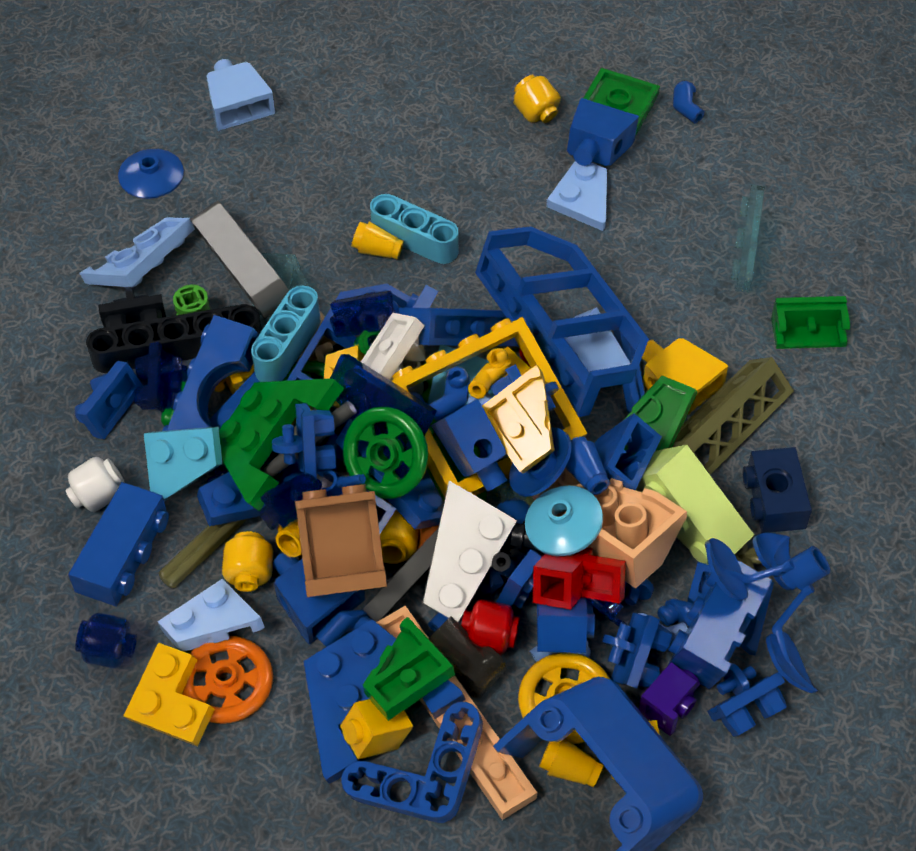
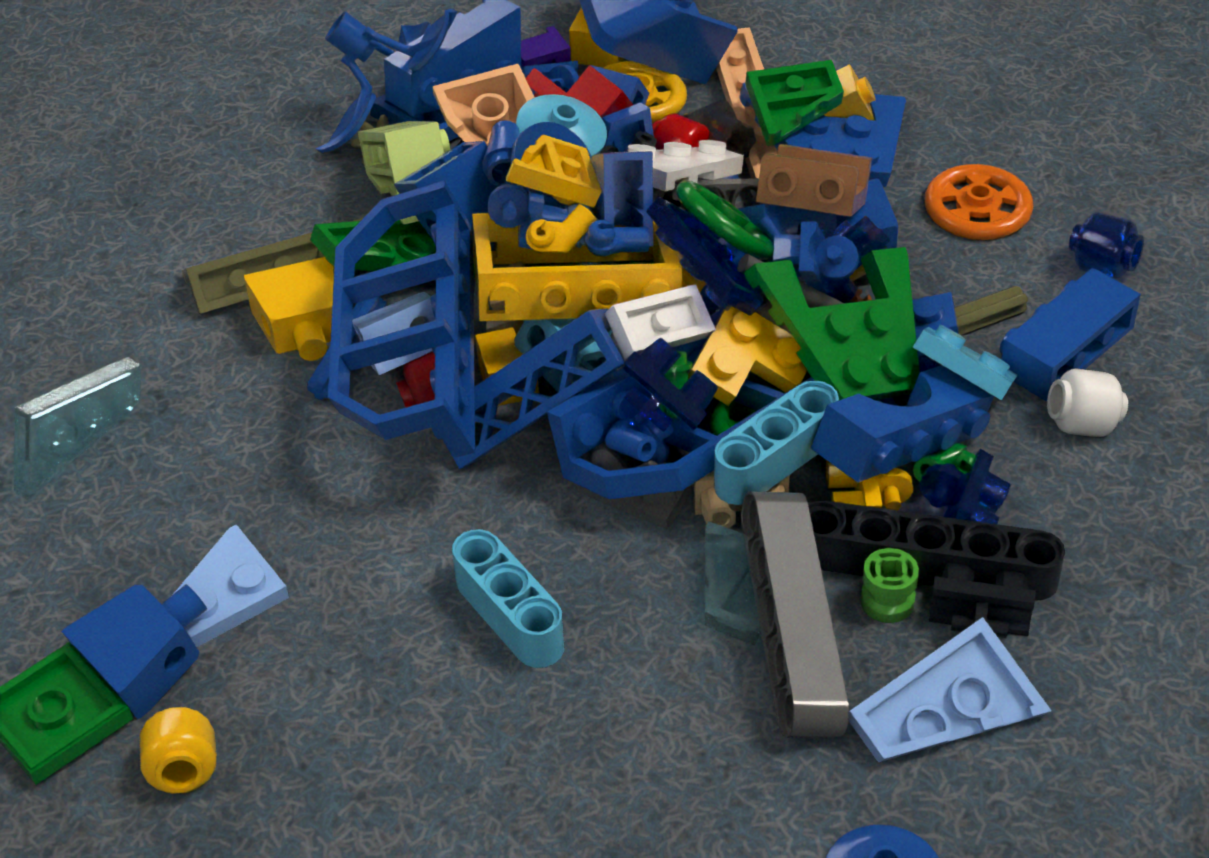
camera: 155 degrees left, 10 degrees down
(109, 399) = (1063, 490): blue tile -> none
(160, 701) = (1048, 190): yellow plate -> none
(209, 618) = (978, 241): light blue wing -> none
(247, 561) = (928, 264): yellow head -> none
(376, 241) = (583, 606): yellow cone -> none
(423, 787) = (802, 47): blue beam -> none
(781, 472) = (292, 176): dark blue brick -> none
(810, 322) = (93, 326): green hinge -> none

